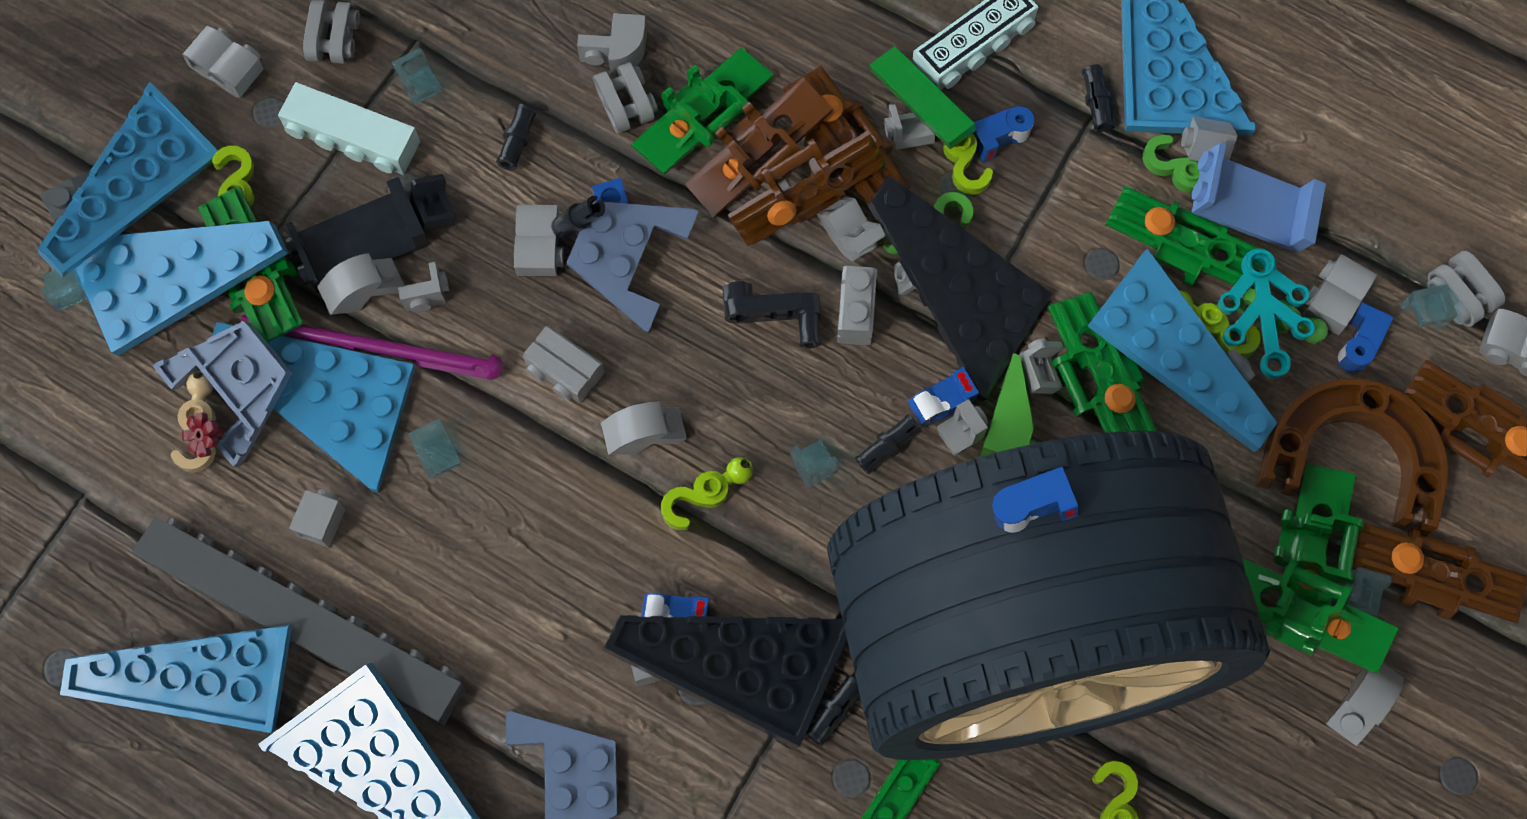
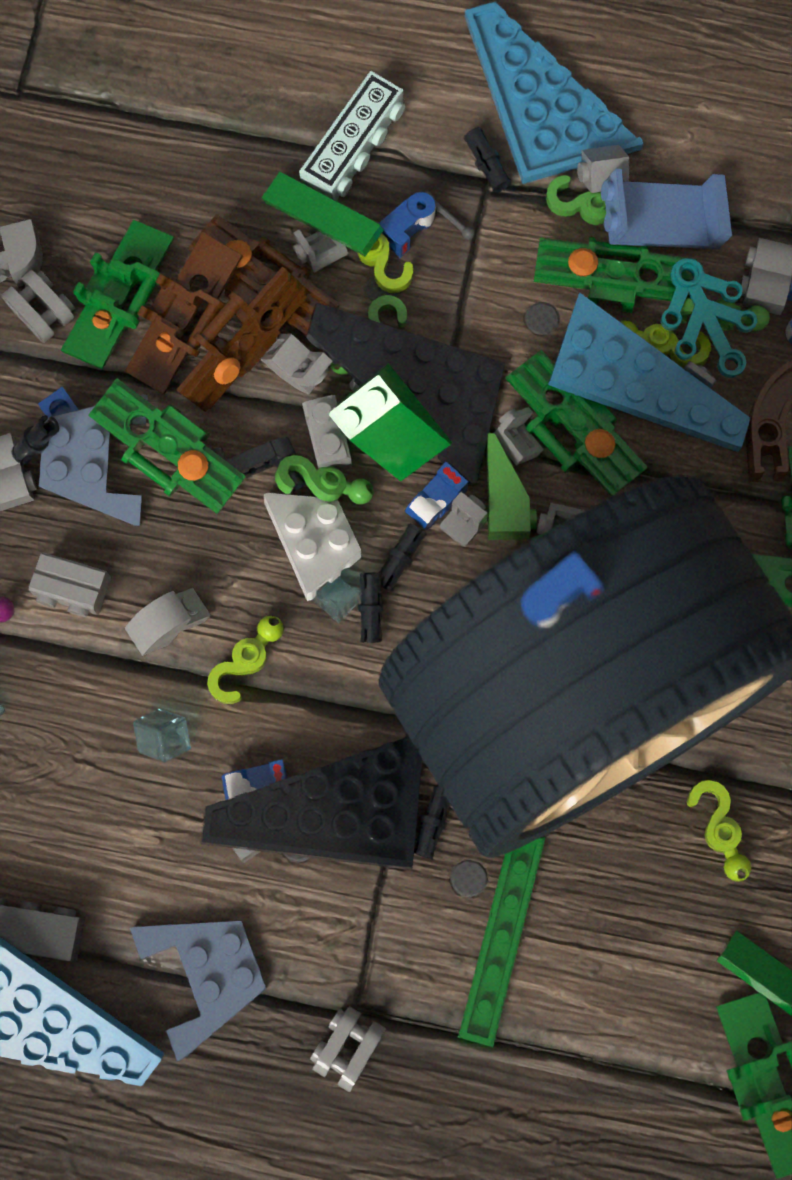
camera: 15 degrees left, 5 degrees up
(601, 536) = (162, 735): none -> clear light blue panel
(711, 260) = (175, 438): none -> green piece
(811, 397) = (313, 537): none -> white wing
(839, 349) = (325, 483): none -> bright green piece
(843, 482) = (371, 607): none -> black pin
(921, 313) = (390, 424): none -> green slope
(1056, 160) = (467, 232): none -> dark grey hinge

